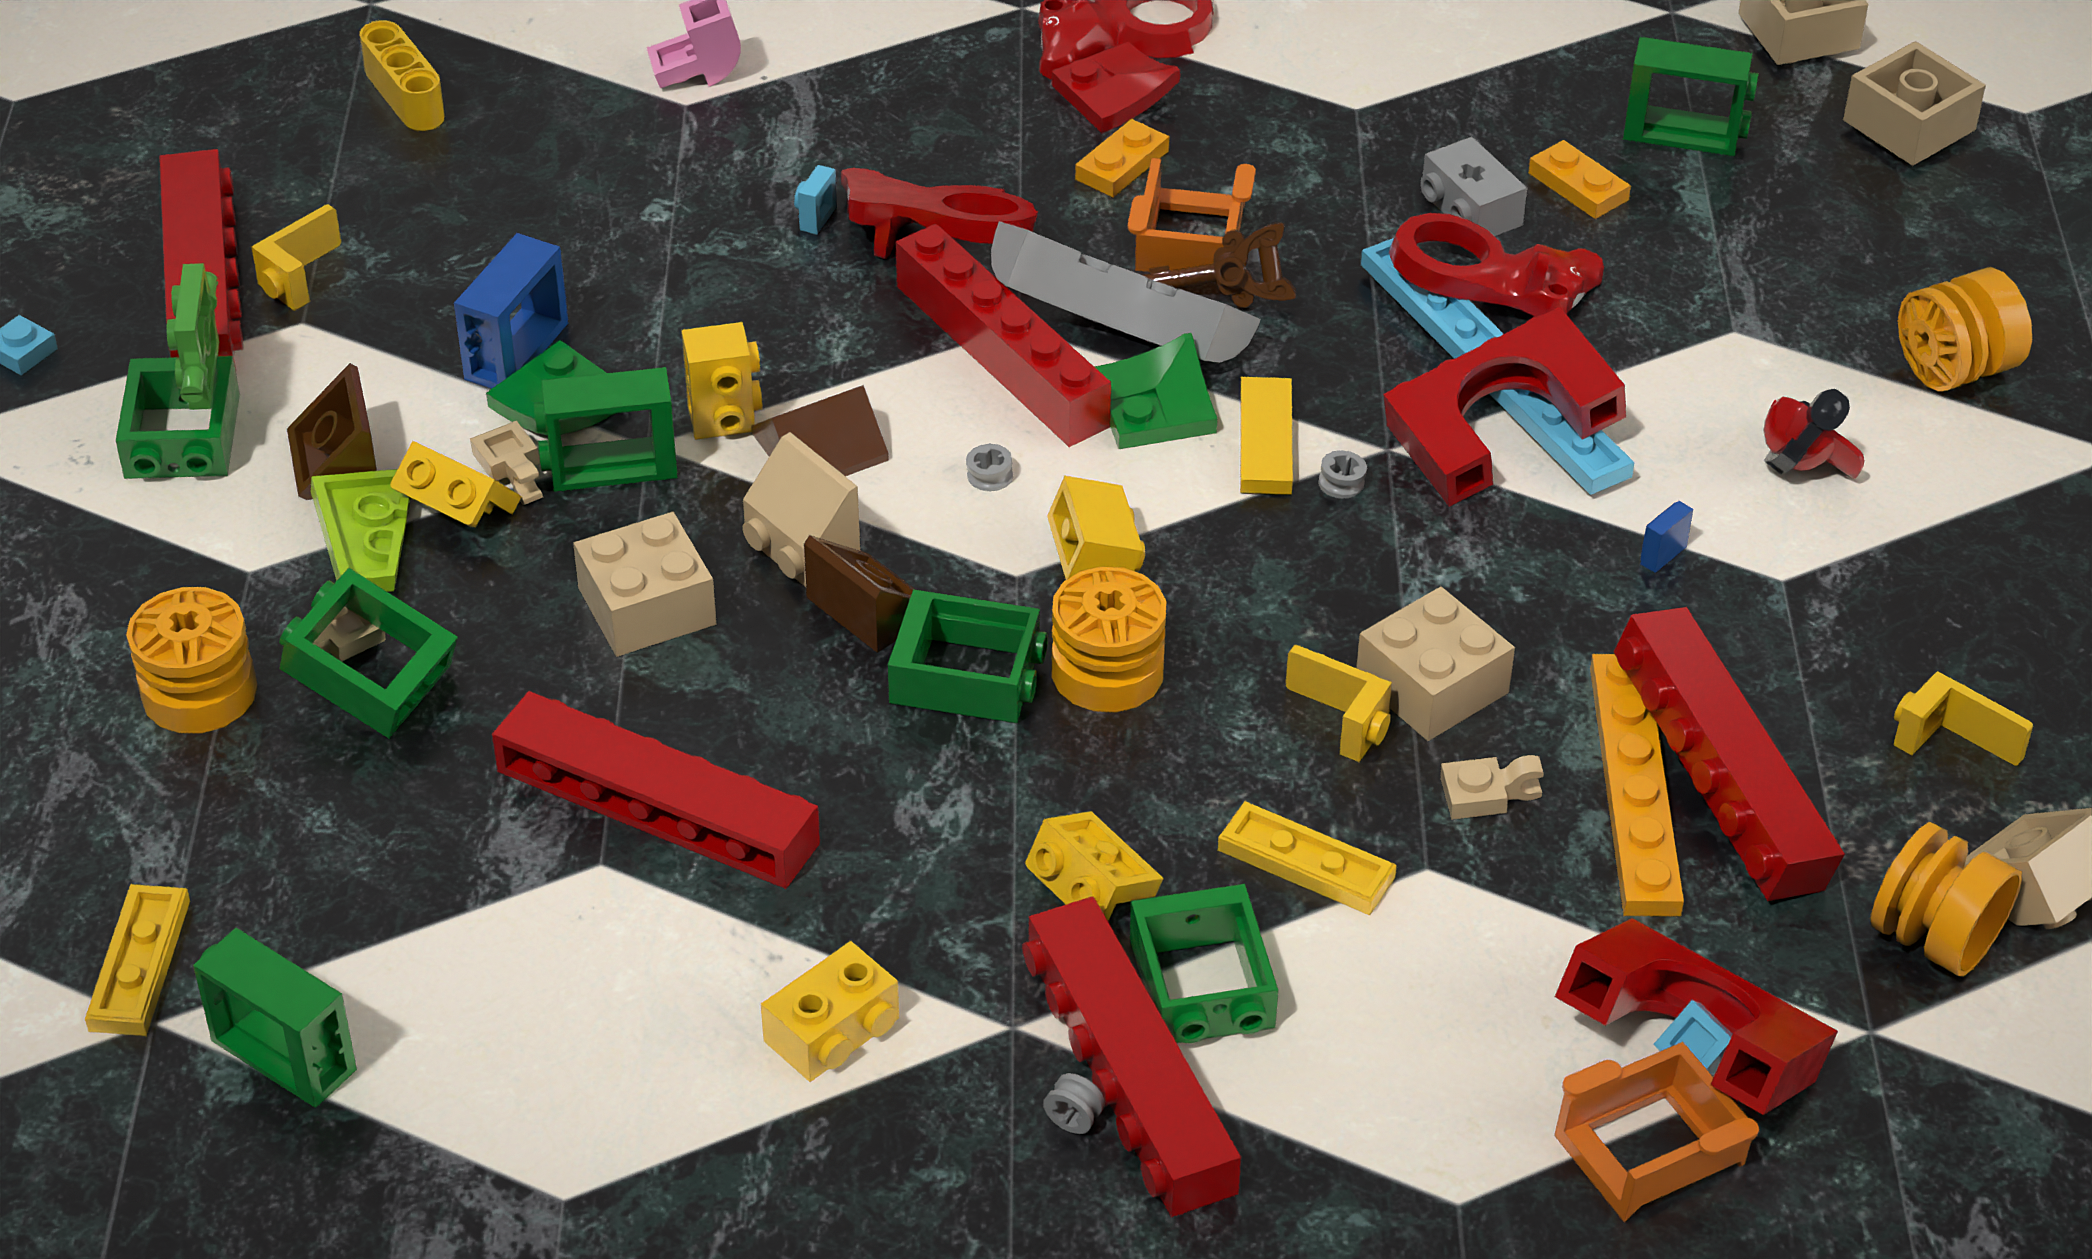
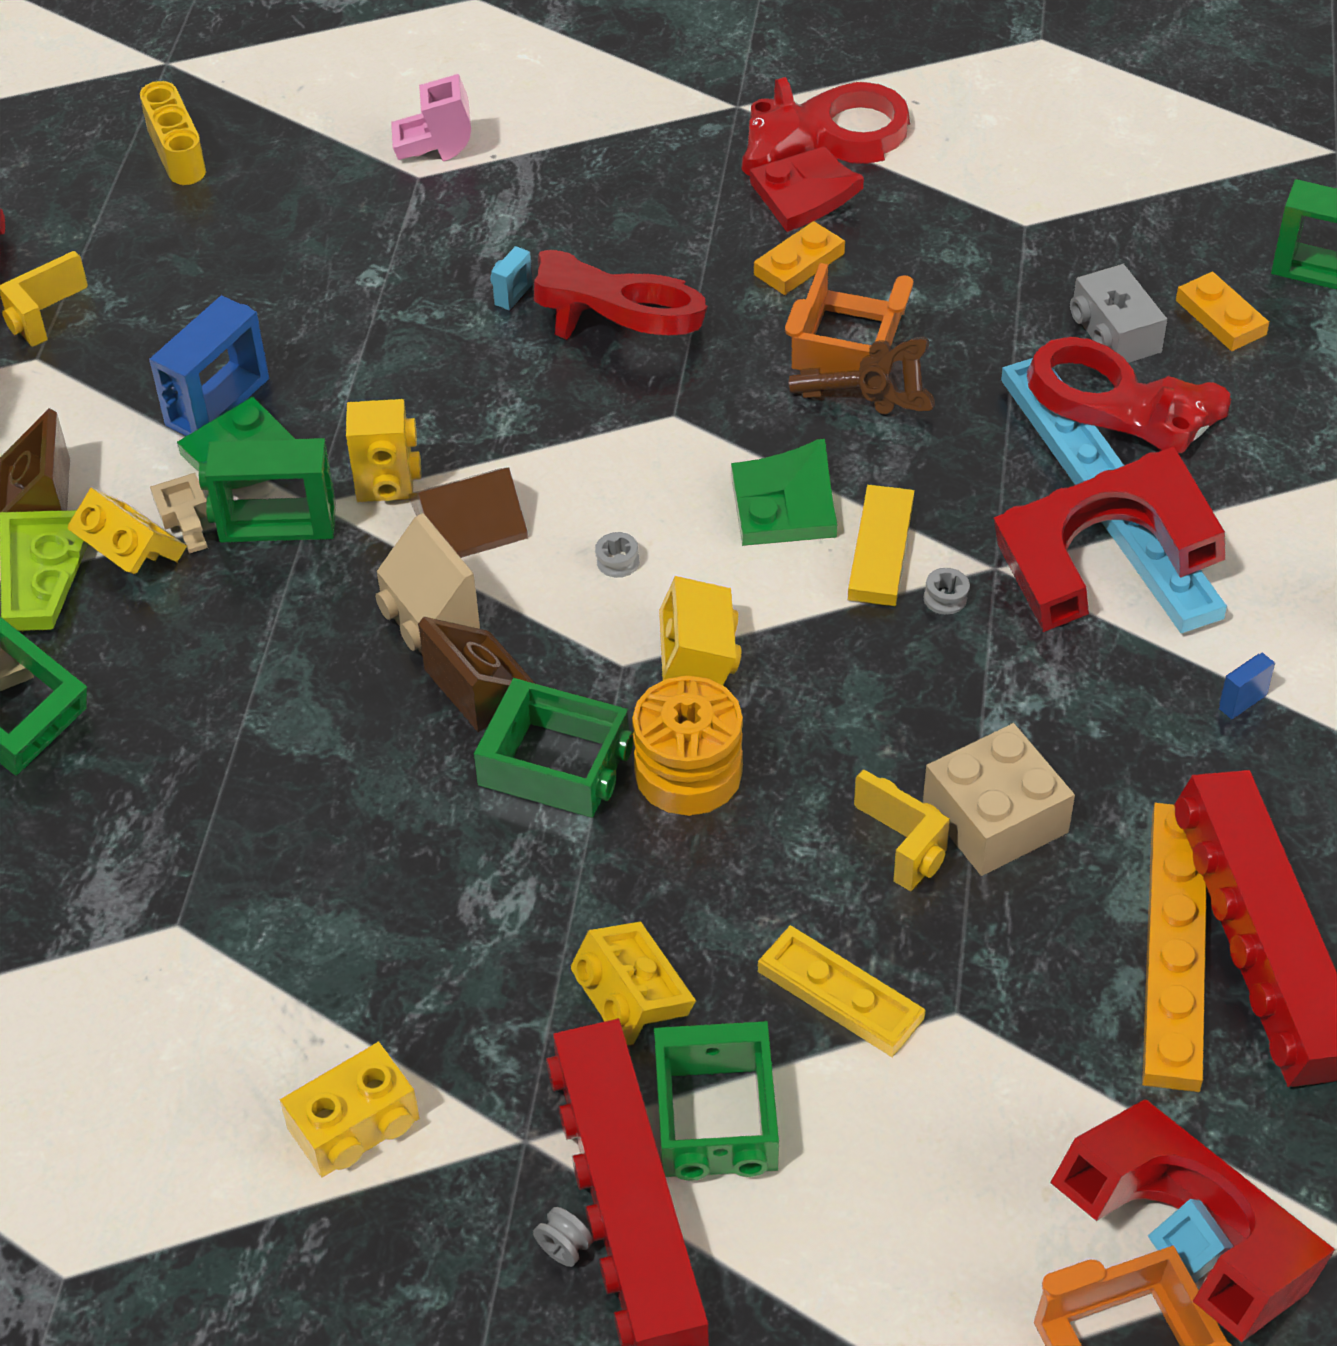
camera: 10 degrees right, 5 degrees up
(645, 583) = (274, 645): tan brick -> none
(657, 789) = (242, 857): red brick -> none
(1003, 335) = (654, 426): red brick -> none
(1117, 295) = (764, 396): light grey brick -> none
(1483, 789) = (1023, 933): tan plate -> none

